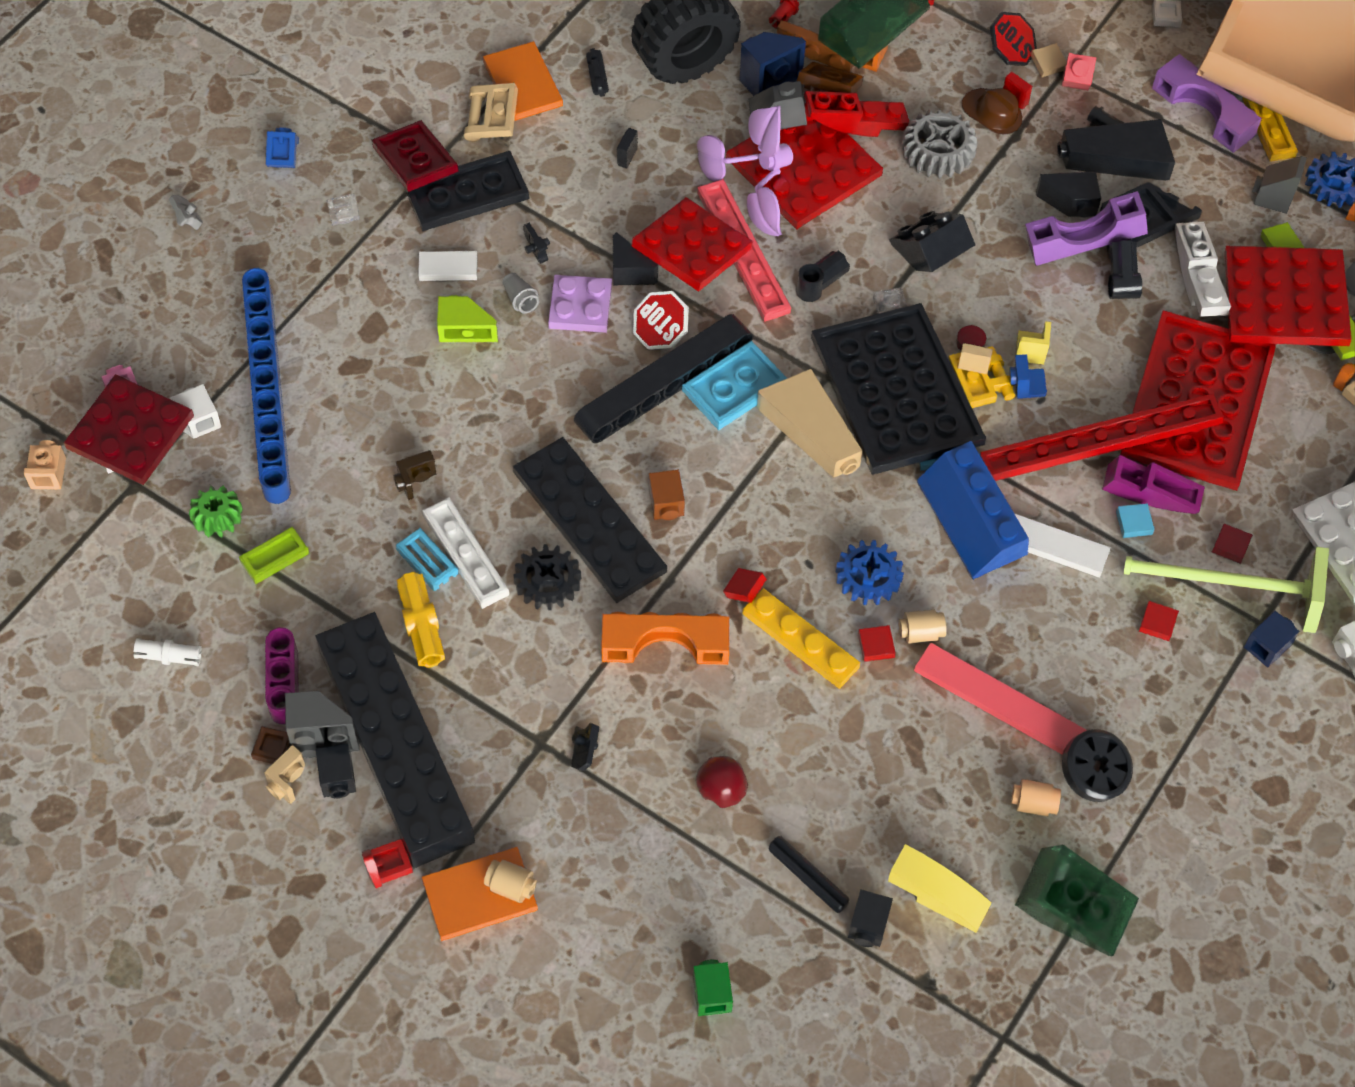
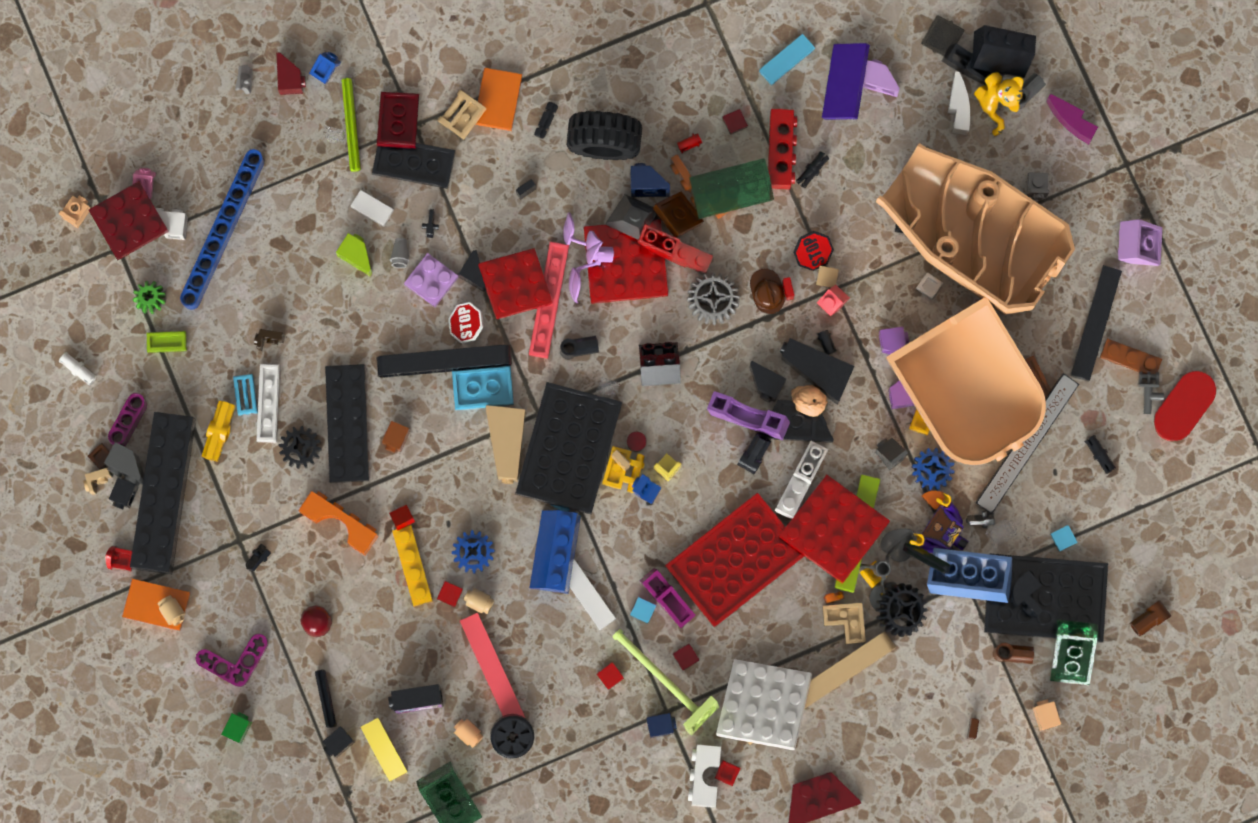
camera: 35 degrees right, 20 degrees up
(242, 178) = (289, 77): none -> dark red slope
(364, 199) = (351, 128): none -> lime axle
(648, 912) = (234, 669): none -> magenta beam
(938, 789) = (416, 699): none -> black brick
(1103, 437) = (656, 552): red plate -> none
(1139, 176) = (803, 399): none -> light nougat hair

